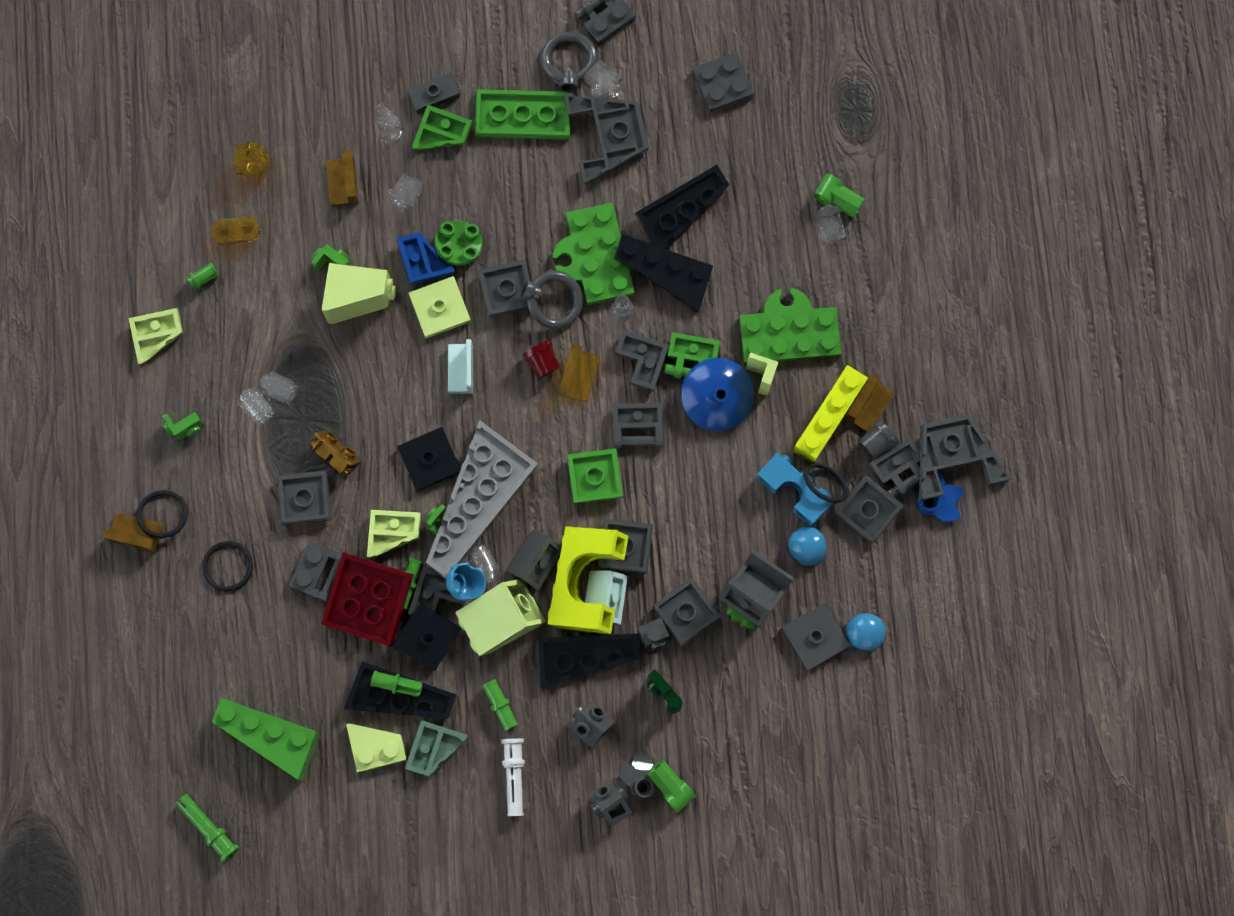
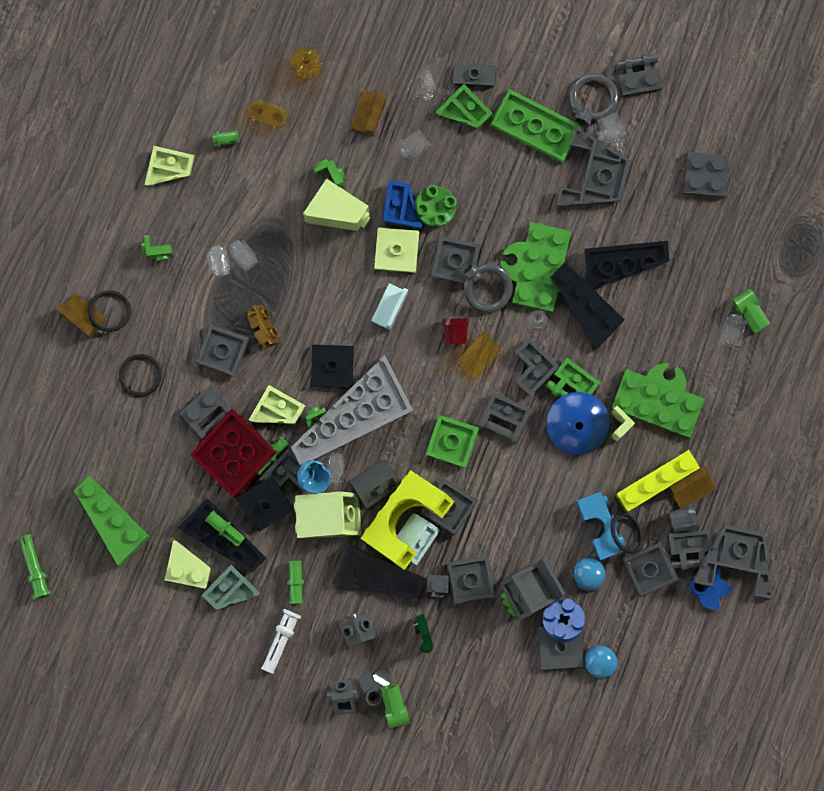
camera: 25 degrees right, 5 degrees up
(805, 593) = (575, 621): none -> plate

